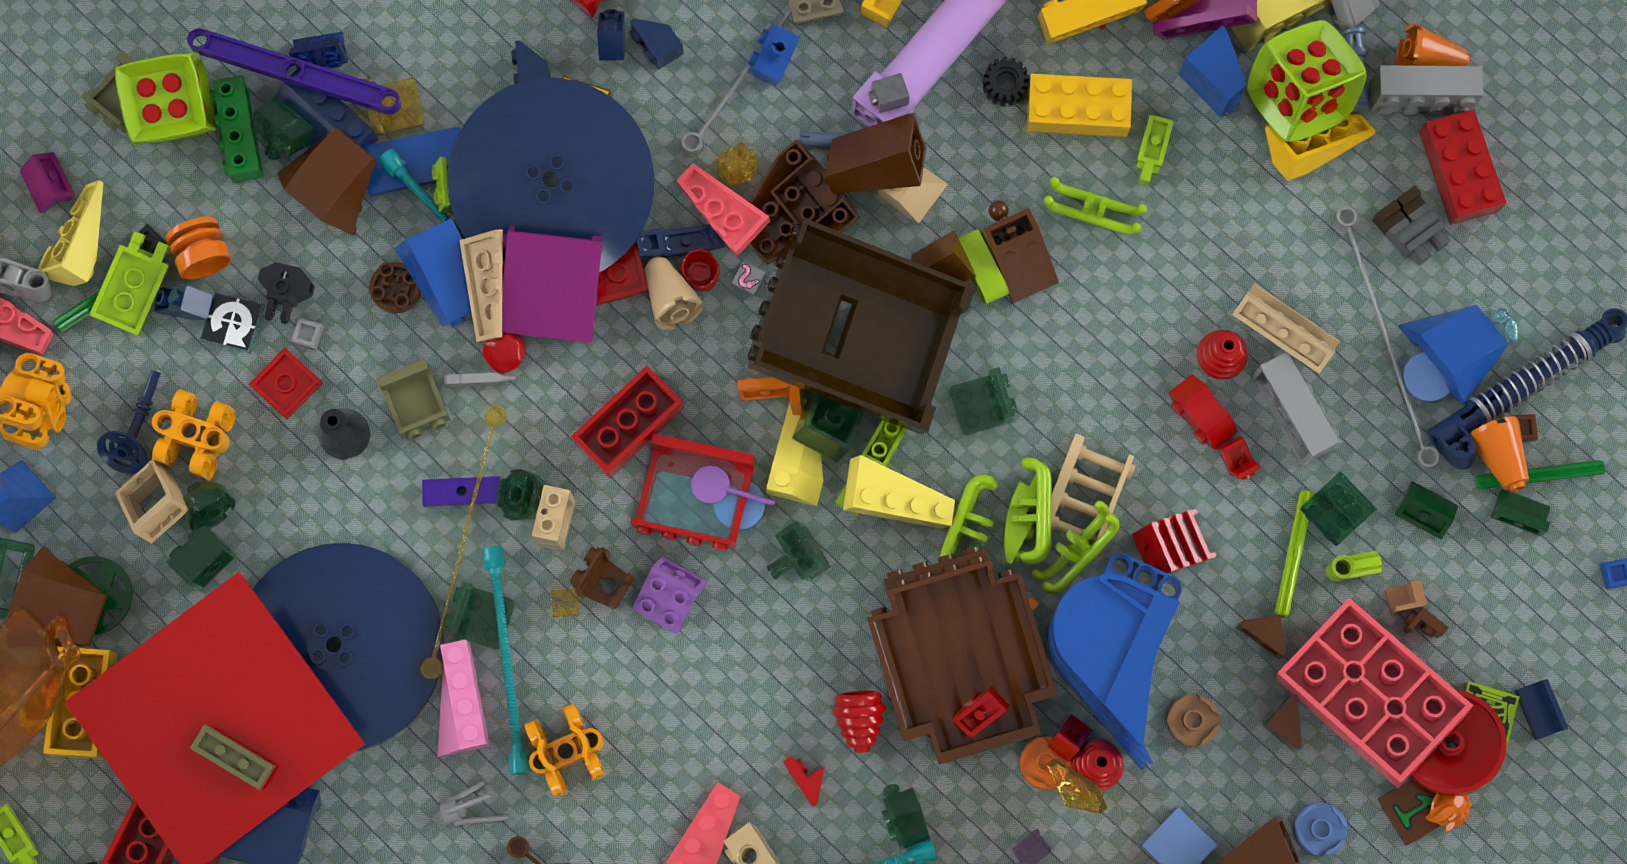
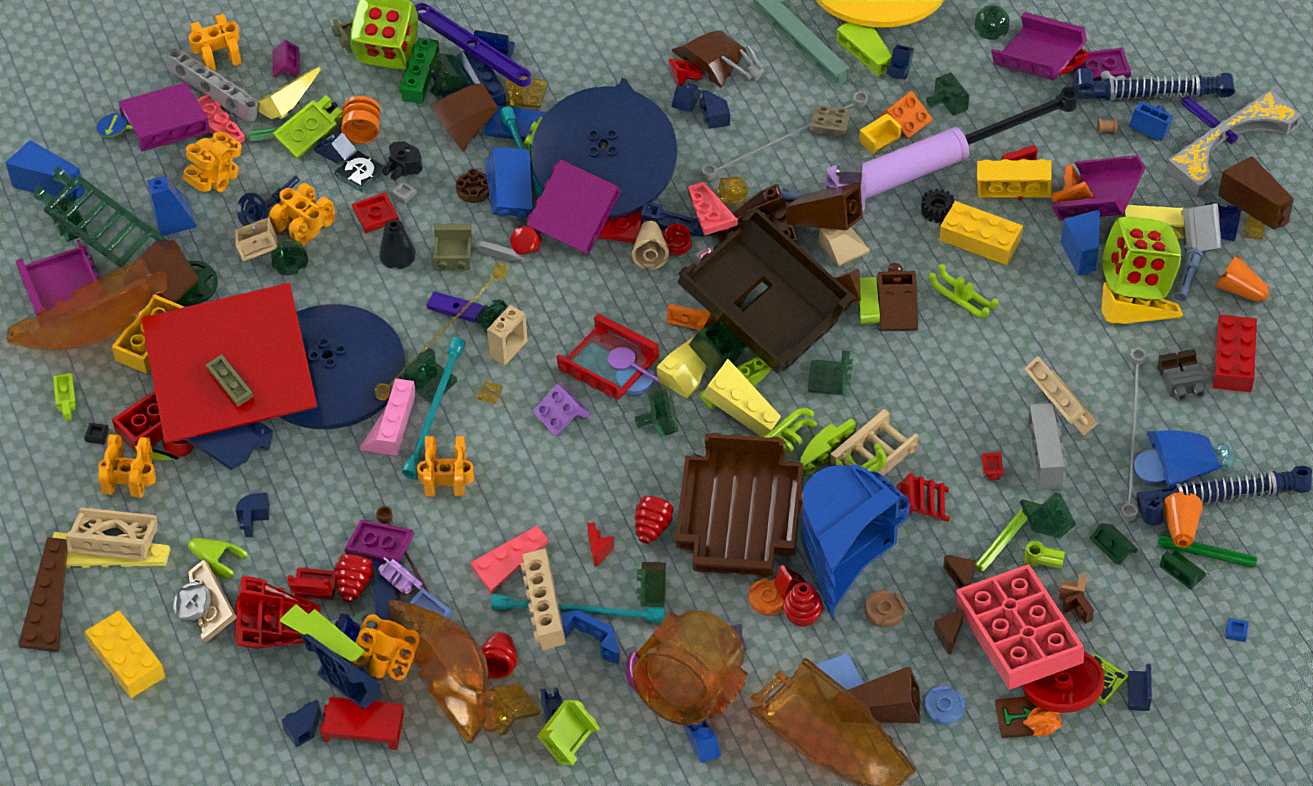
camera: 25 degrees right, 25 degrees down
(201, 557) = (268, 274): clear green brick -> none
(454, 810) = (354, 478): light grey plant -> none
(483, 273) = (532, 186): tan wing -> none
(587, 581) = (519, 375): reddish brown piece -> none
(627, 422) = (580, 302): red brick -> none
(773, 54) = (787, 139): blue brick -> none
(980, 711) = (736, 539): red slope -> none
(1043, 511) = (833, 438): lime piece -> none
(1076, 789) = (780, 609): clear yellow wing -> none
(1153, 147) = (1021, 274): lime hinge -> none
(1202, 412) = (980, 430): red brick -> none
(1217, 360) = (1010, 401): red piece -> none
(1425, 89) = (1227, 296): light grey brick -> none
(1527, 427) = (1208, 520): reddish brown tile -> none

